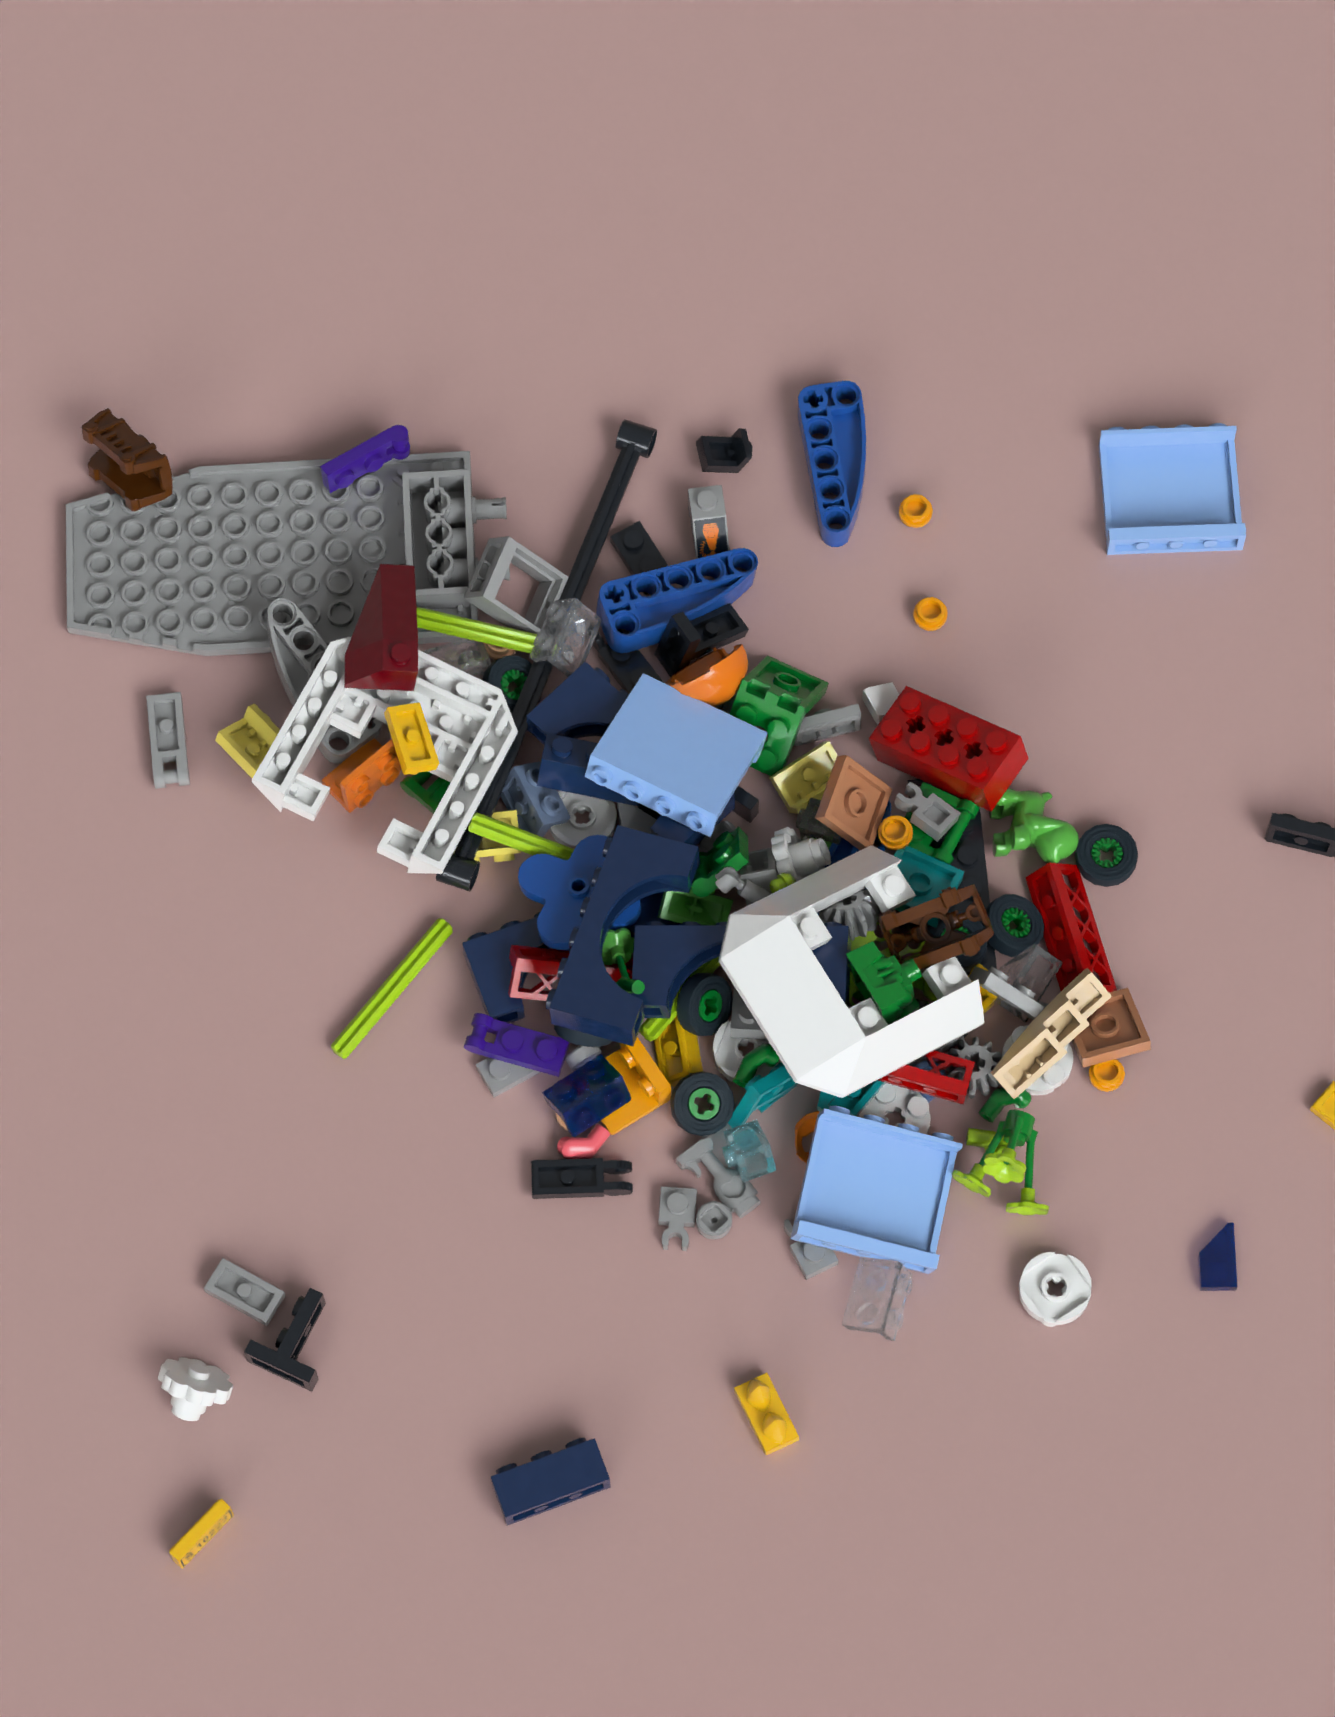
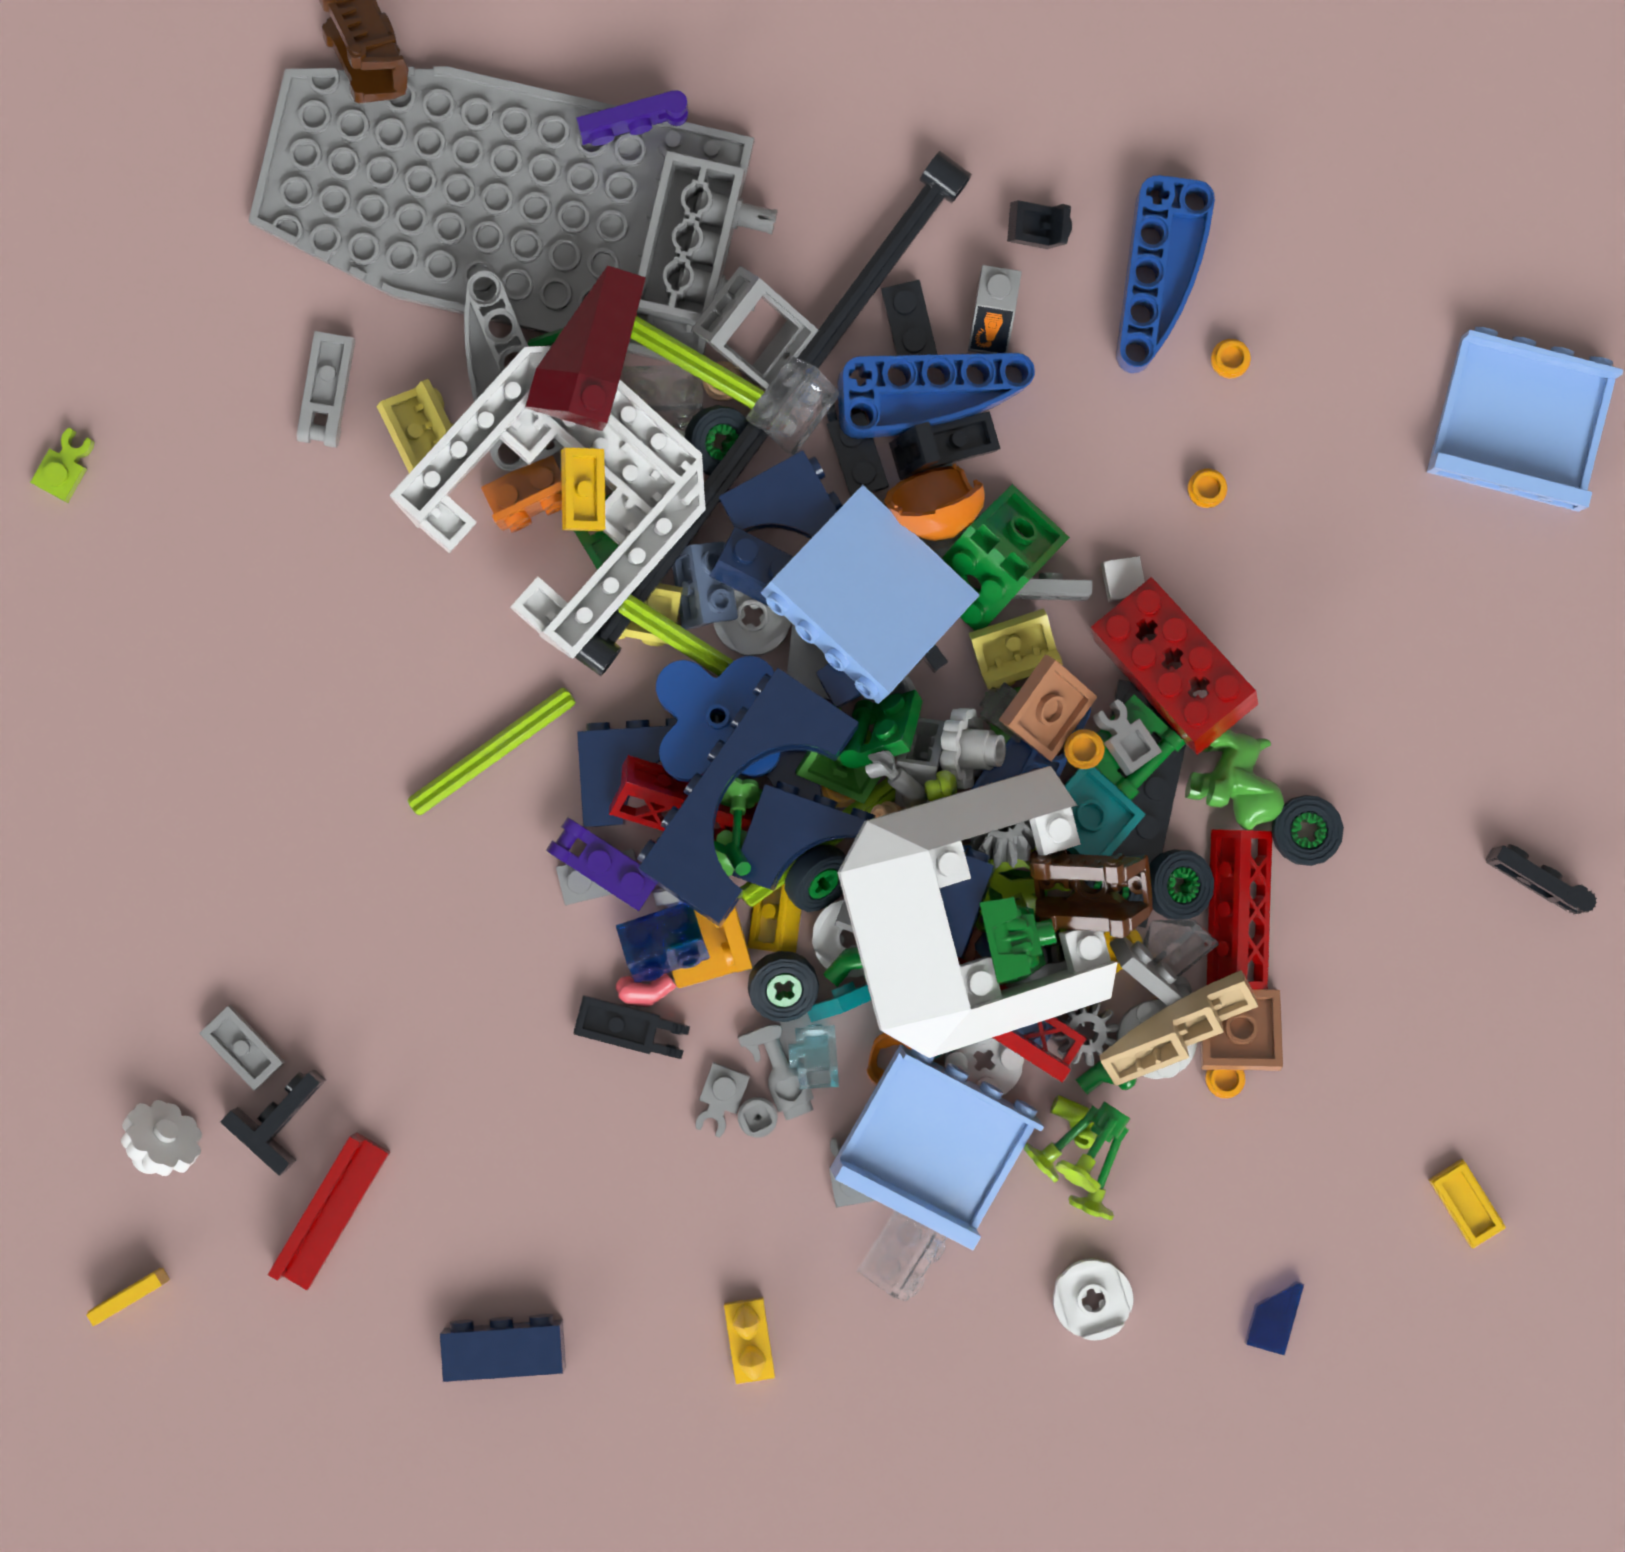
camera: 15 degrees right, 20 degrees up
(361, 1409) = (329, 1211): none -> red fence

